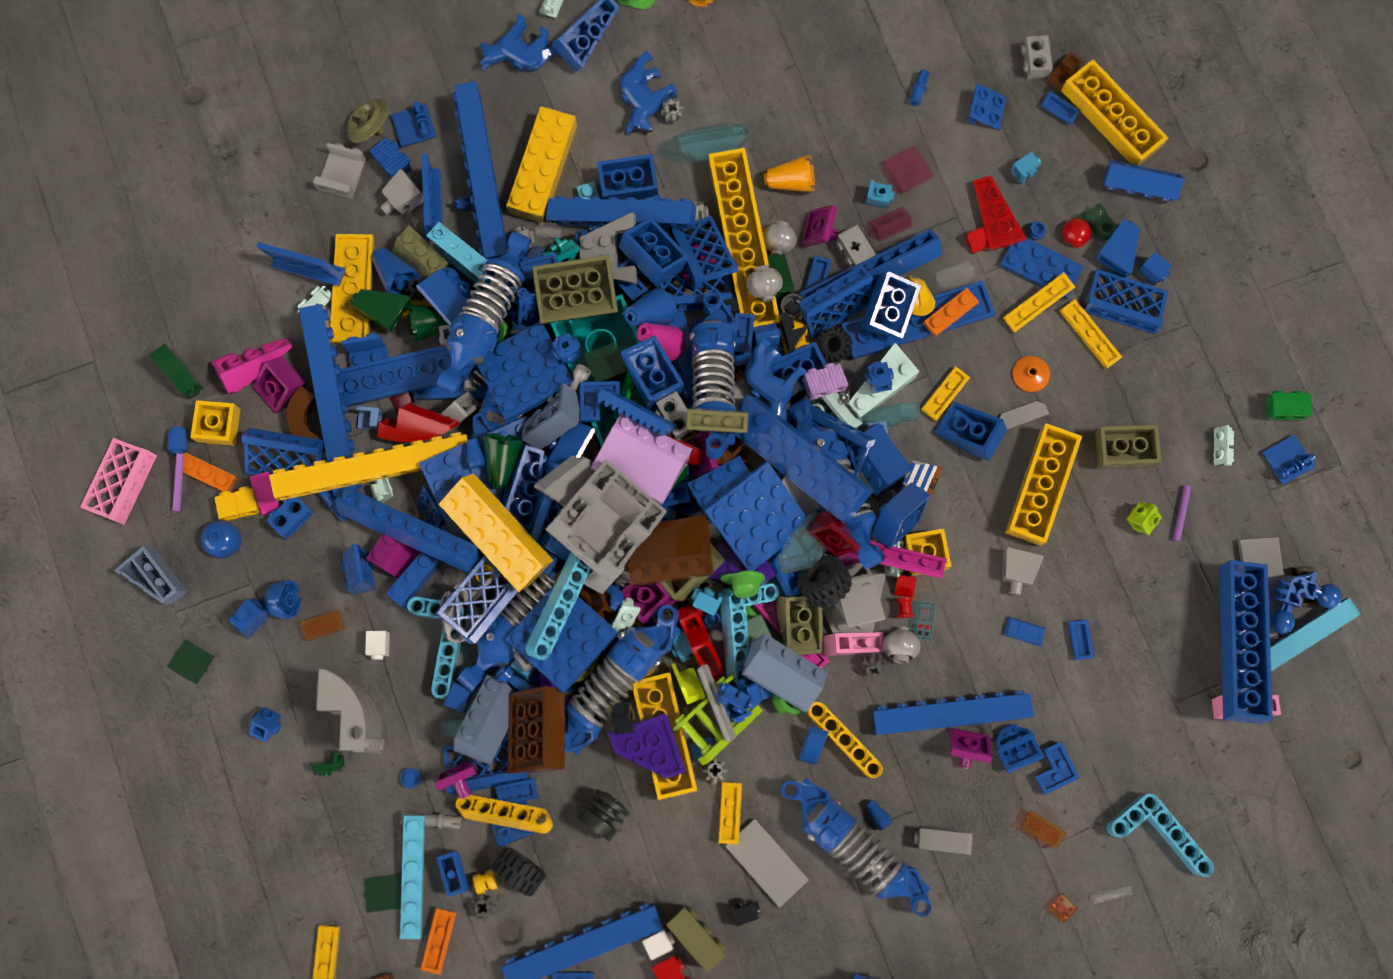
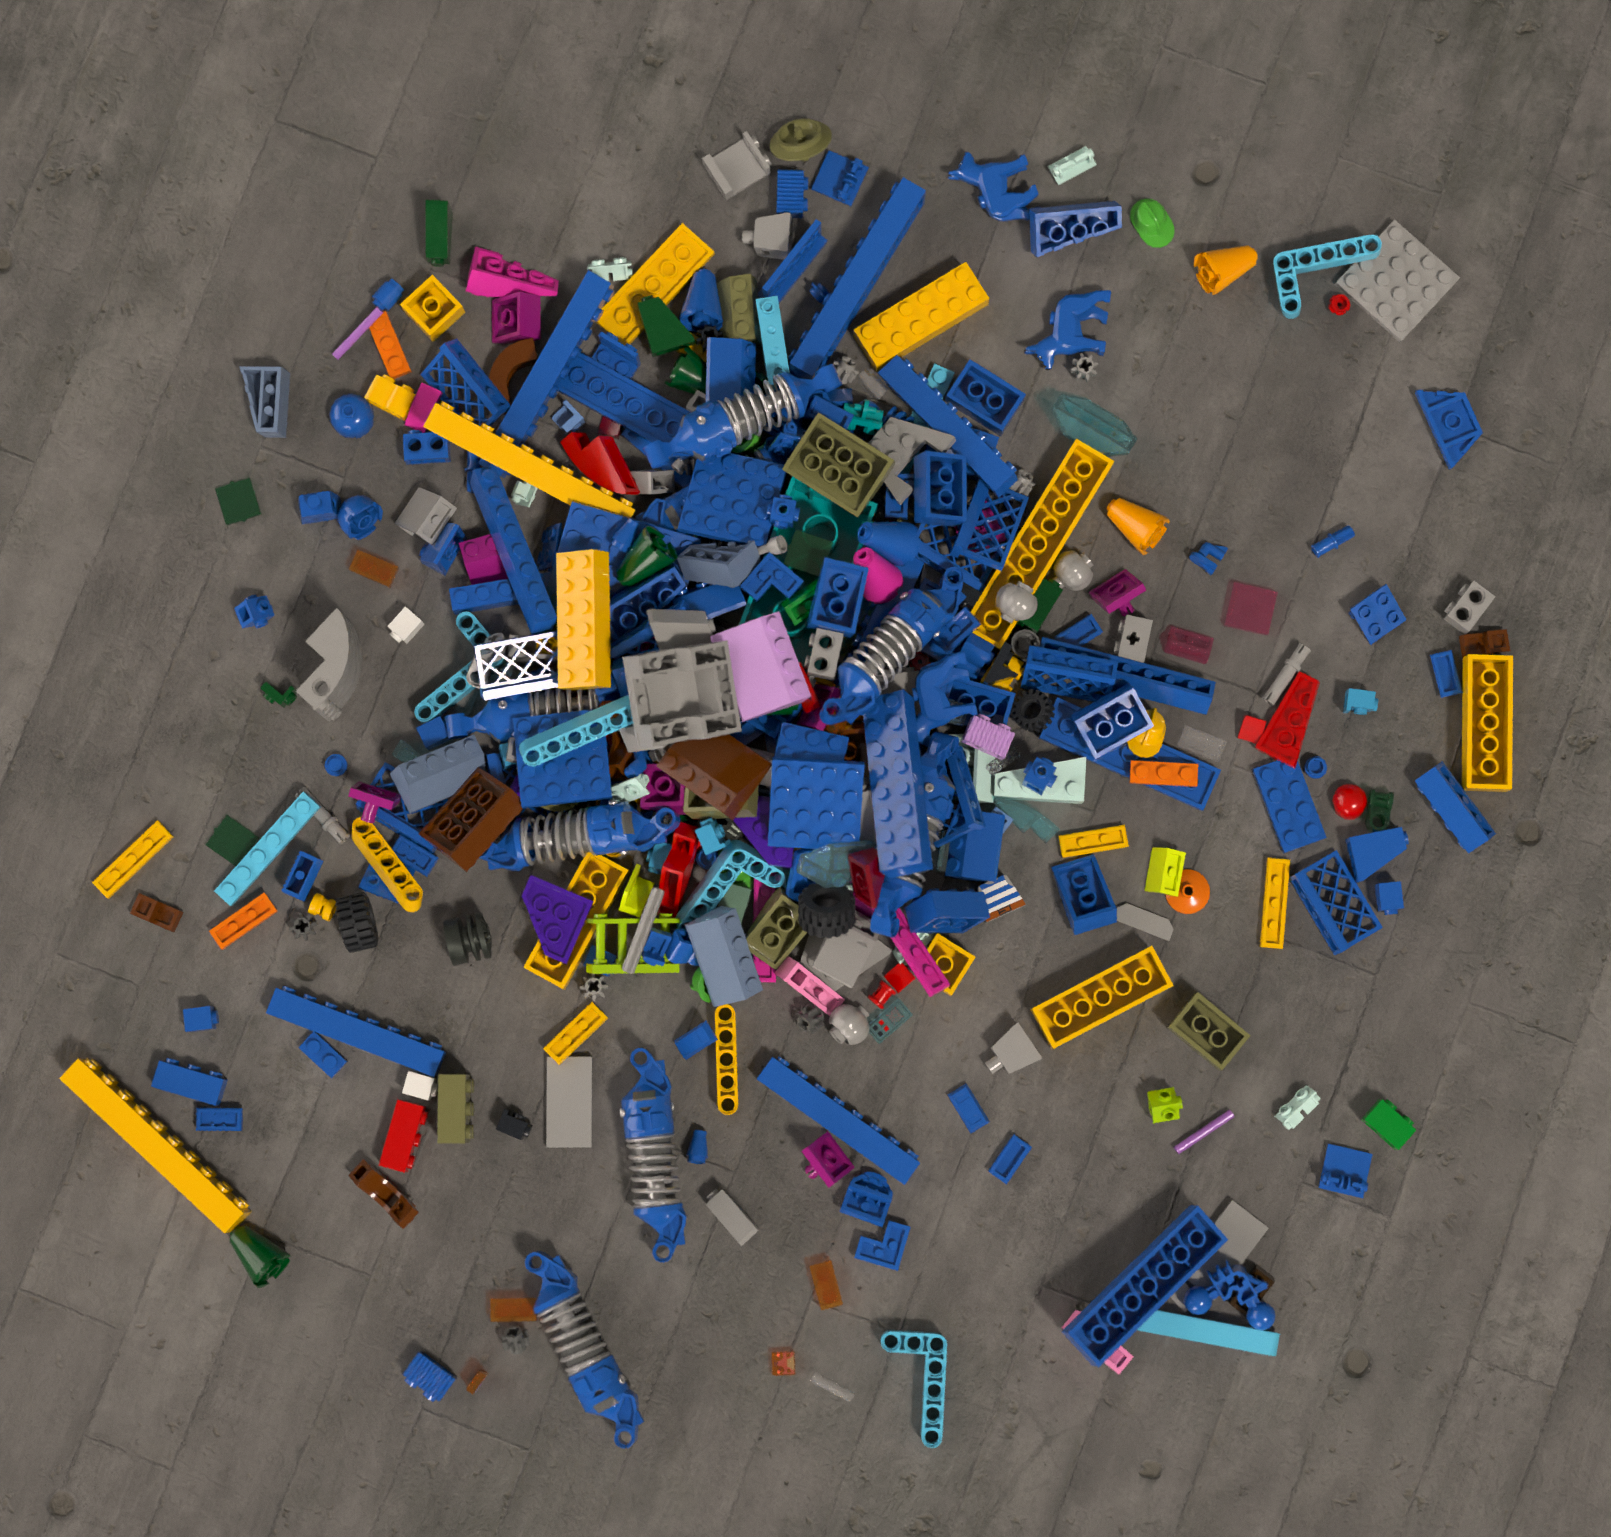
camera: 45 degrees right, 5 degrees up
(130, 486) = (311, 303): bright pink fence -> none
(303, 265) = (630, 230): blue fence -> none
(327, 558) = (425, 515): none -> light grey panel
(504, 673) = (488, 746): blue plate -> none
(623, 718) = (552, 873): black brick -> none
(635, 411) = (793, 621): blue gear -> none
(717, 420) = (852, 691): olive plate -> none
(727, 695) = (656, 931): blue hinge -> none
(744, 583) = (755, 851): bright green piece -> none
(856, 165) = (1201, 560): none -> blue piece
(875, 198) = (1193, 608): dark azure brick -> none
(967, 190) = (1291, 666): none -> light grey pin
(1007, 372) = (1165, 871): none -> neon yellow panel
(1038, 302) = (1252, 834): yellow tile -> none

